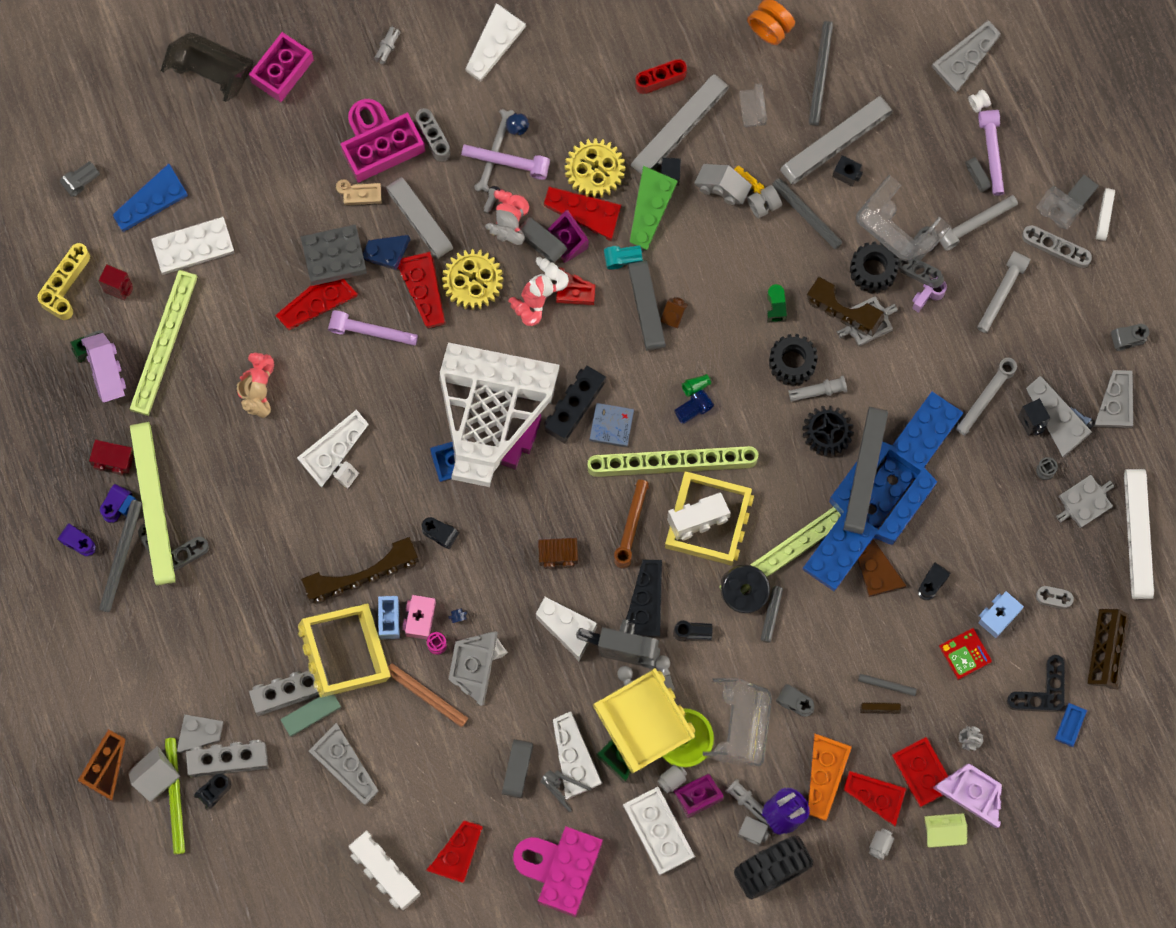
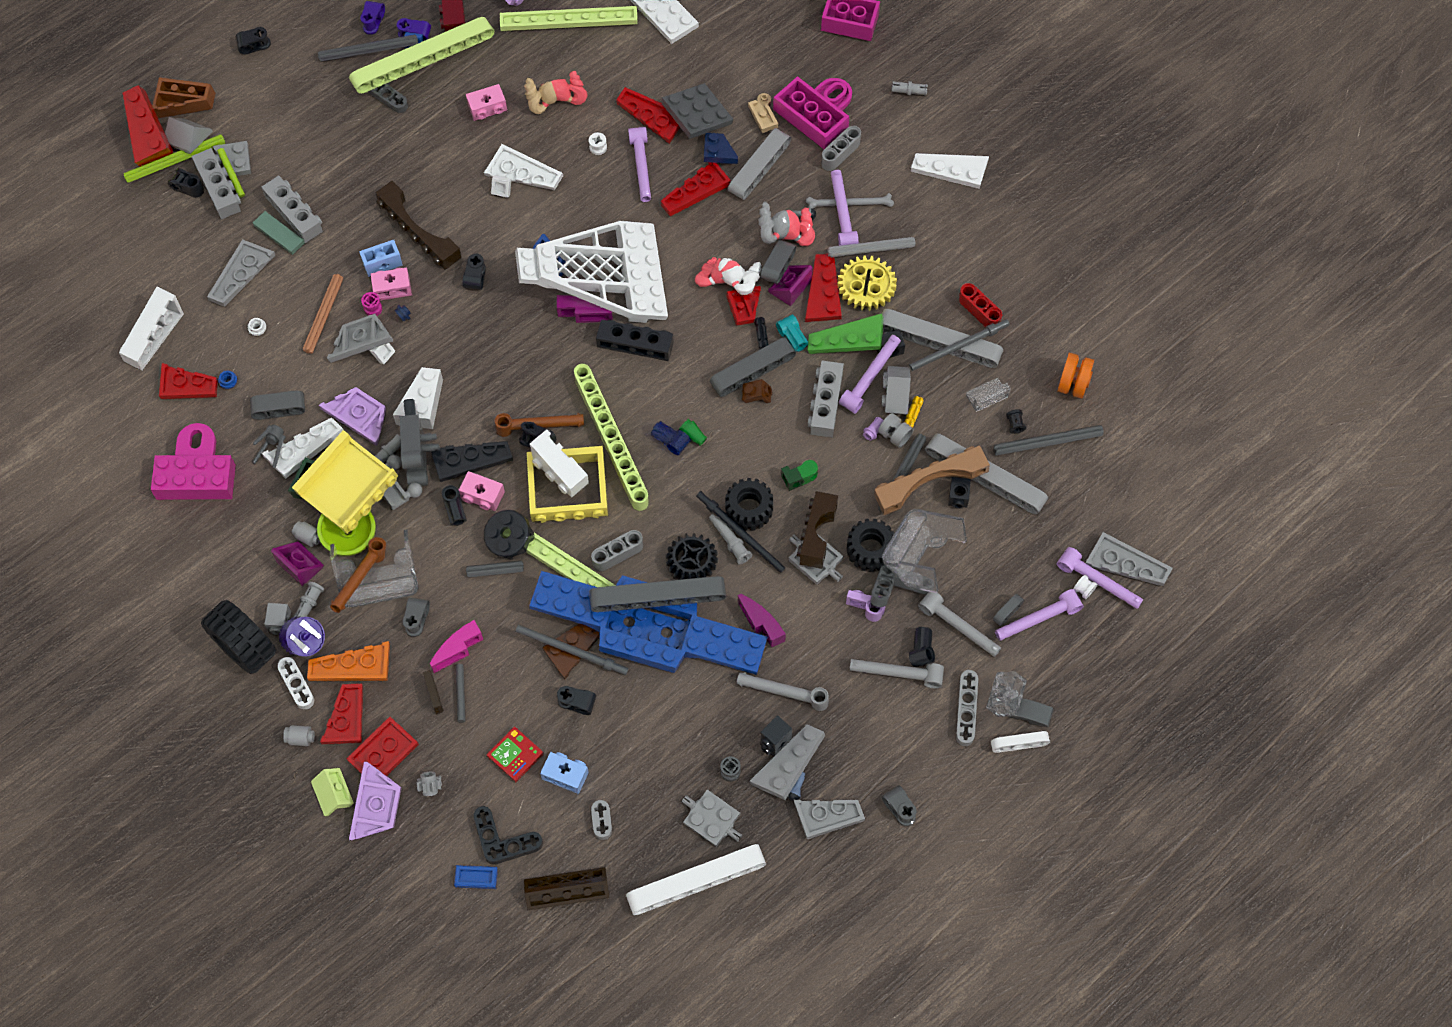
camera: 70 degrees right, 10 degrees down
(56, 678) = (250, 40): none -> black piece
(140, 812) = (144, 128): none -> red wedge
(219, 740) = (222, 154): none -> lime bar
(237, 469) = (486, 102): none -> bright pink brick
(334, 367) = (601, 147): none -> white wheel
(372, 640) = (352, 257): light yellow window -> none
(414, 759) = (255, 322): none -> white plate
(467, 804) = (227, 375): none -> blue plate
(481, 265) = (703, 219): light yellow gear -> none
(517, 124) = (880, 208): dark blue piece -> none
(556, 692) = (358, 413): none -> lavender wing
(557, 148) = (869, 247): none -> light grey axle
(558, 552) = (490, 372): reddish brown brick -> none
(608, 675) = (389, 449): none -> light grey pin
(611, 425) = (628, 377): sand blue tile -> none
(612, 285) = (761, 332): none -> black axle
(651, 528) = (531, 431): none -> black piece
(658, 831) = (254, 539): white plate -> none
(689, 590) = (477, 484): none -> bright pink brick
(695, 77) = (990, 330): none -> dark grey bar
(701, 242) = (827, 372): none -> light grey brick
(716, 228) = (853, 400): none -> lavender piece
(739, 738) = (375, 554): none -> dark orange piece
(753, 221) = (871, 432): none -> lavender pin
(787, 392) = (712, 506): none -> black bar
(792, 93) = (1016, 427): none -> black bush
(795, 486) = (621, 542): none -> light grey beam
(835, 227) = (966, 464): none -> medium nougat arch
(838, 825) = (296, 675): none -> white beam
(841, 672) = (456, 646): none -> dark pink slope
(905, 542) = (608, 664): none -> dark grey bar
(912, 391) = (761, 620): none -> magenta slope
(950, 103) = (1071, 561): none -> lavender piece
(993, 262) = (923, 651): none -> black piece

